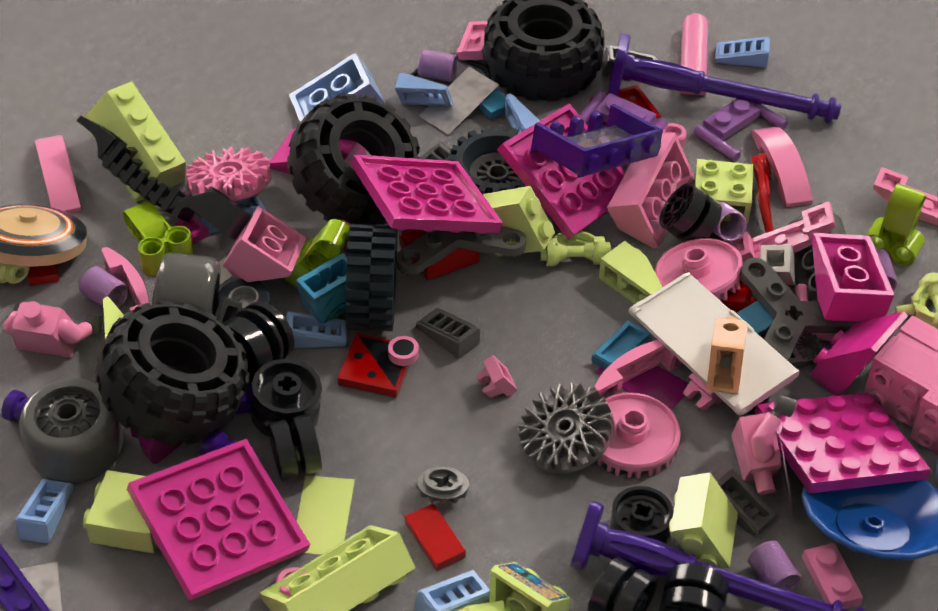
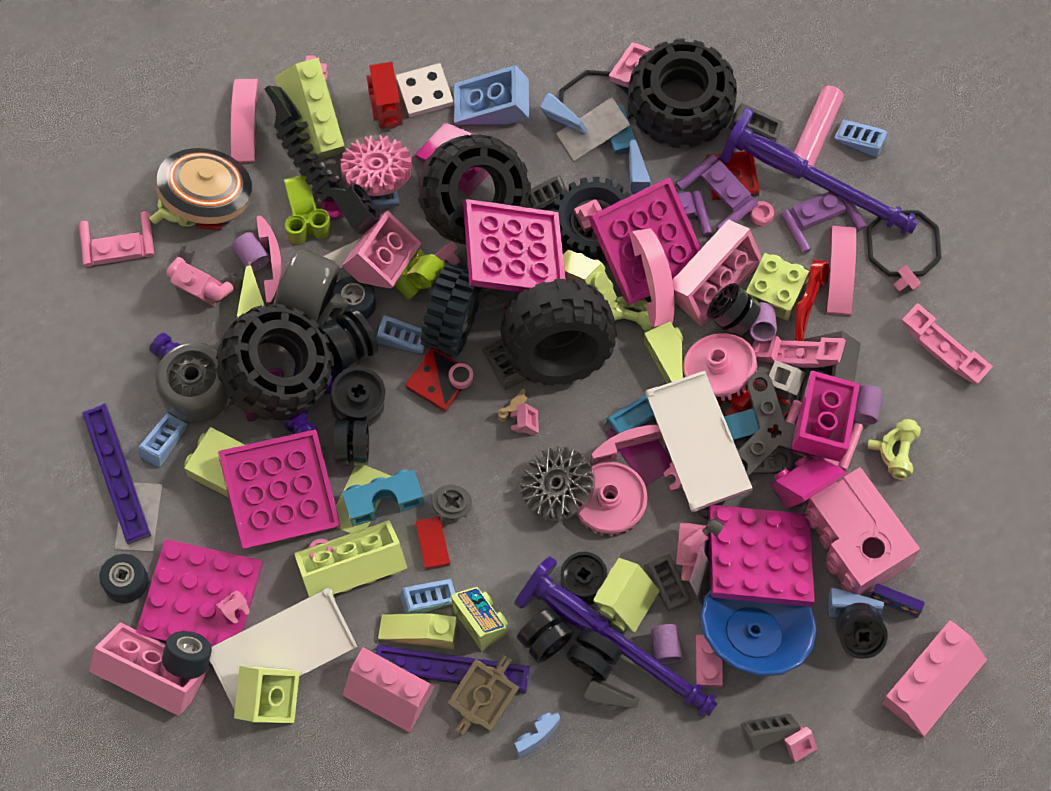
camera: 20 degrees right, 20 degrees up
(217, 111) = (384, 95): none -> red brick
(258, 106) = (424, 90): none -> white tile
(325, 289) = (412, 309): dark azure torso -> none
(374, 484) = (401, 487): none -> dark azure arch
(437, 65) = (587, 86): lavender piece -> none
(467, 379) = (503, 413): none -> tan piece
(491, 165) = (583, 211): none -> bright pink tile
(534, 282) = (558, 332): none -> black tyre
(600, 147) = (676, 231): dark purple window -> none
(610, 224) = (657, 275): none -> bright pink slope
(727, 341) = (697, 461): light nougat torso -> none
(840, 156) = (896, 273): none -> black piece
(857, 153) = (908, 278): none -> bright pink tile
(897, 229) = (899, 371): lime piece -> none

